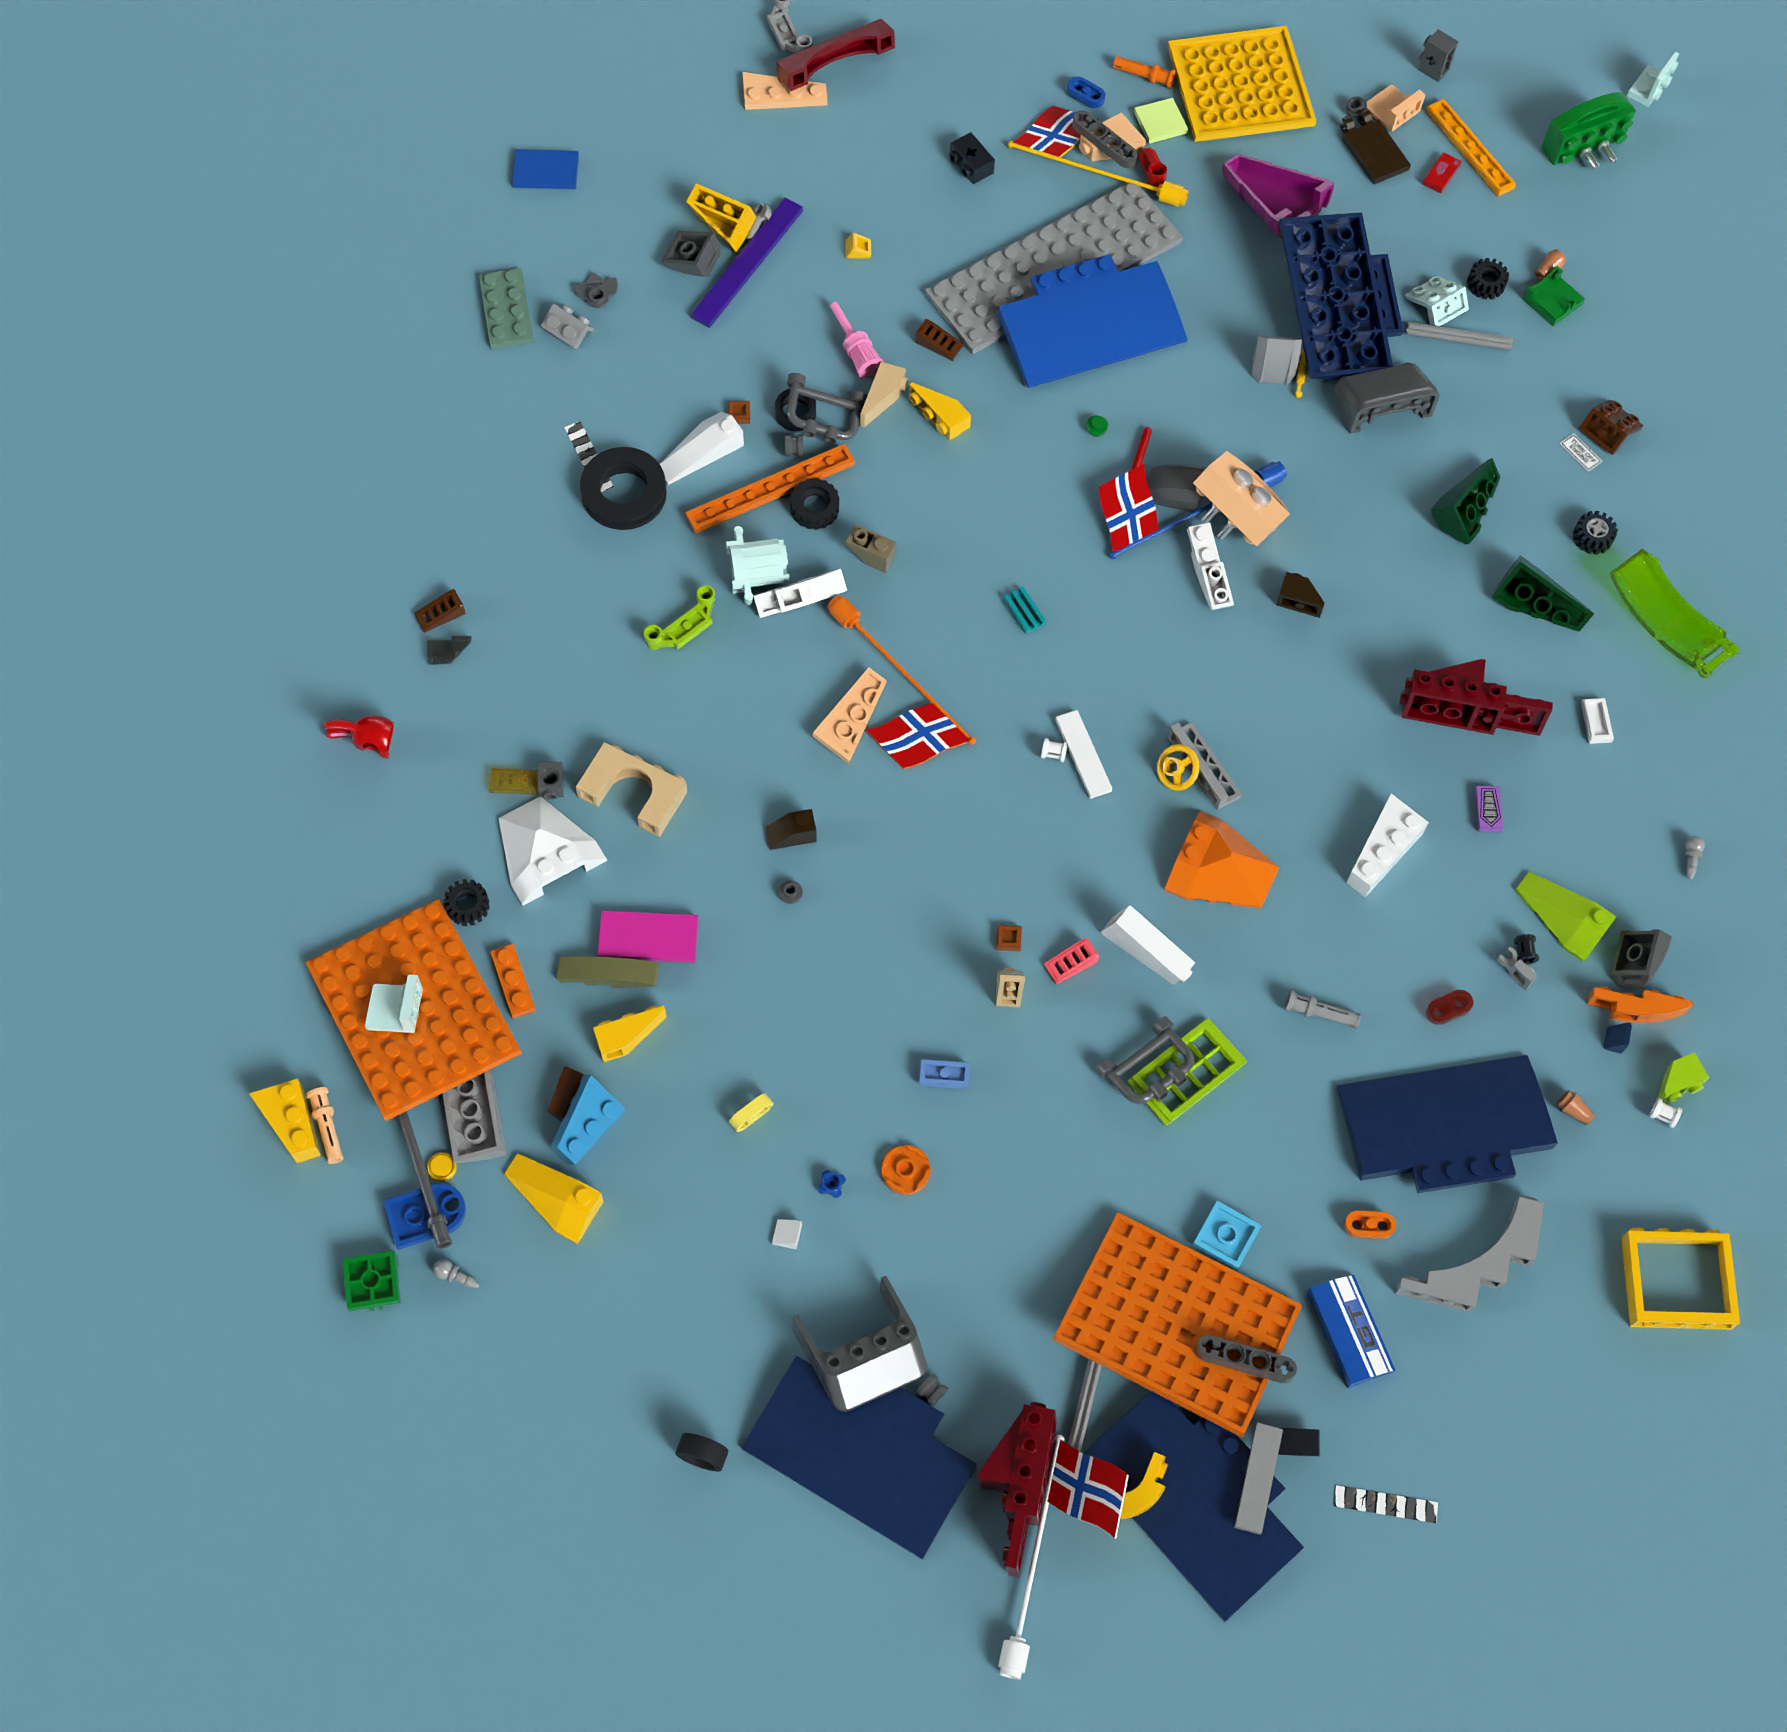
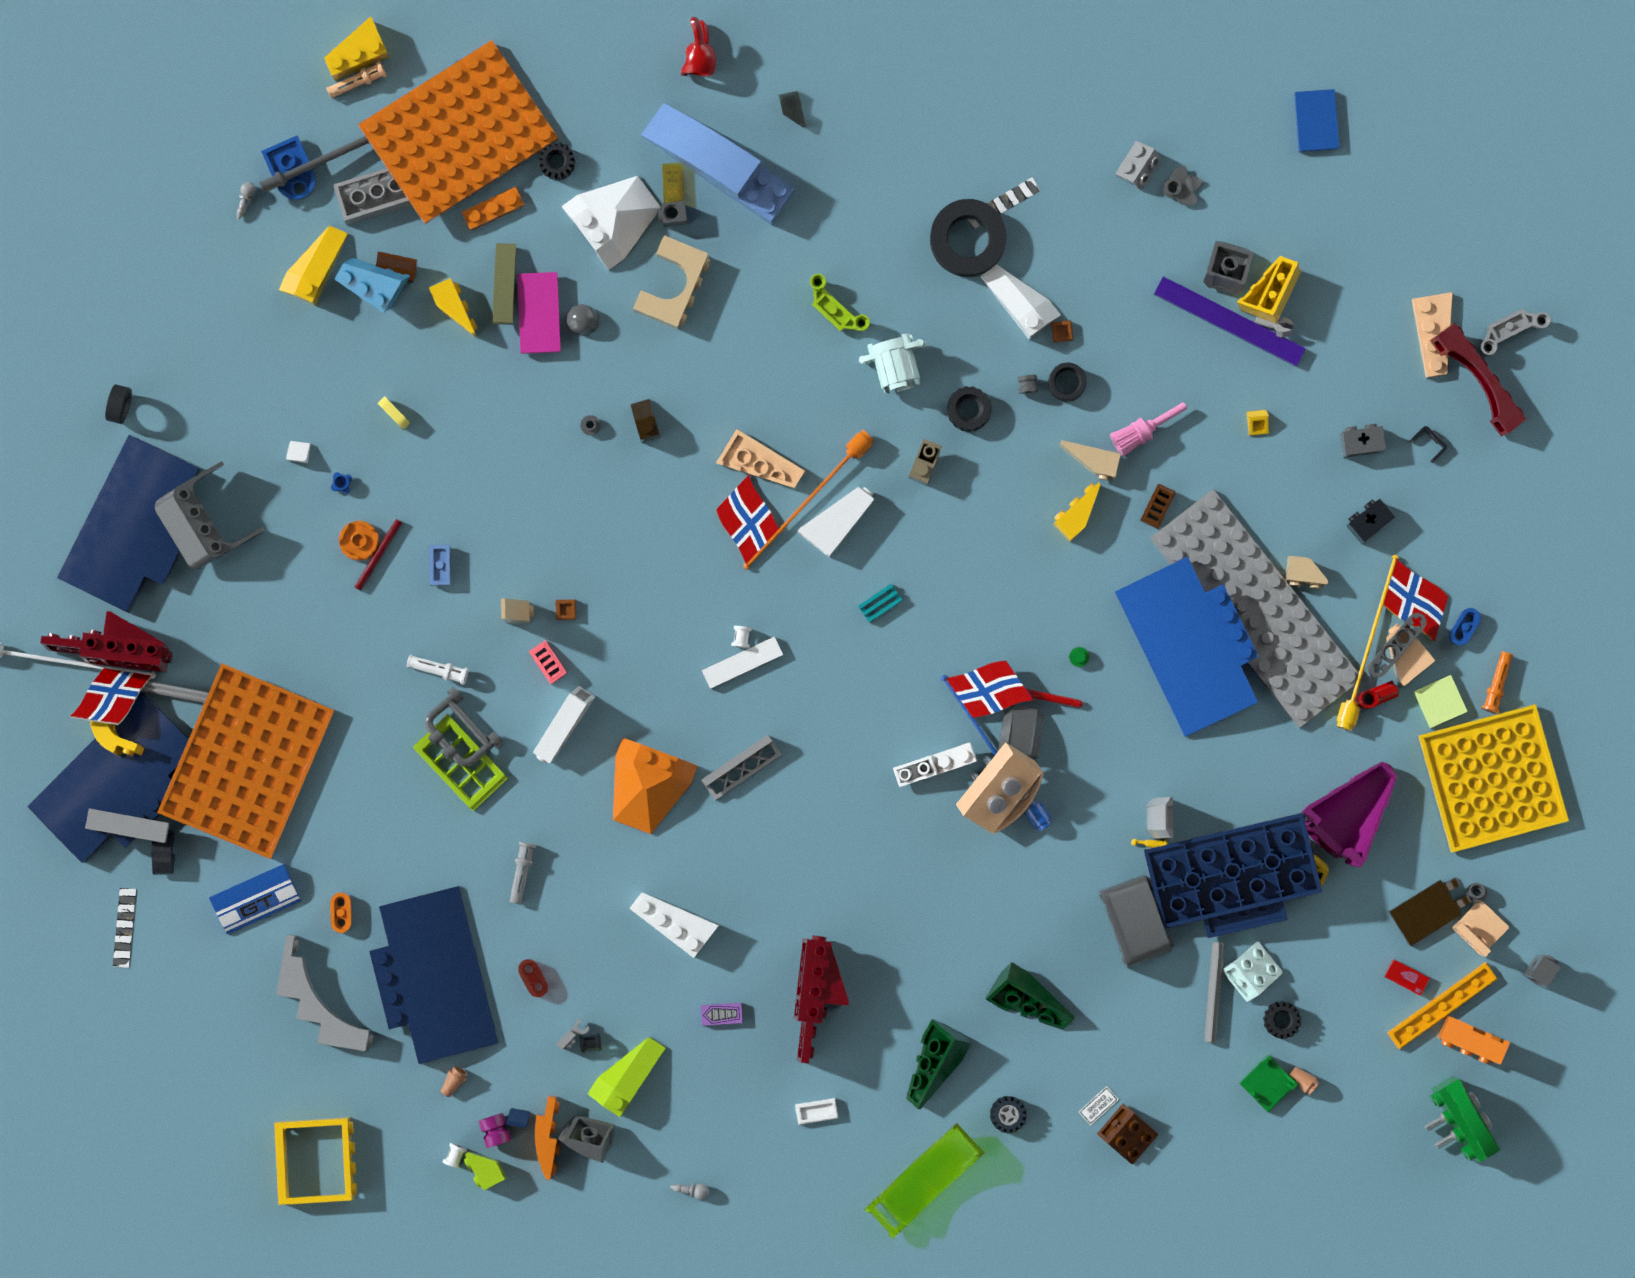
camera: 90 degrees right, 20 degrees up
(371, 1281) = (232, 137): green piece -> none
(395, 1006) = (450, 117): light aqua bracket -> none
(436, 605) = (836, 110): reddish brown slope -> none
(441, 1167) = (332, 175): yellow piece -> none
(496, 725) = (719, 162): none -> medium blue slope
(506, 308) = (1154, 106): sand green plate -> none
(662, 890) = (582, 319): none -> dark grey hair
(768, 488) = (981, 368): orange plate -> none
(800, 593) = (872, 409): white slope -> none
(809, 426) = (1044, 396): dark grey bar -> none
(888, 157) = (1374, 444): none -> dark grey brick
(892, 99) = (1435, 437): none -> black piece
(925, 1147) = (378, 554): none -> dark red bar
(929, 641) = (836, 522): none -> white slope
(932, 1390) = (181, 574): dark grey wheel -> none
(1019, 217) = (1304, 571): none -> tan slope
(1075, 1076) = (447, 671): none -> white pin
(1167, 764) = (729, 738): yellow piece -> none
(1227, 1235) = (323, 798): medium azure plate -> none
(1245, 1363) = (214, 812): dark grey beam -> none
(1300, 595) = (916, 844): dark brown slope -> none
(1509, 116) = (1472, 1041): none -> orange wedge
(1636, 1062) = (494, 1130): none -> magenta wheel
(1651, 81) = (1538, 1185): light aqua bracket -> none

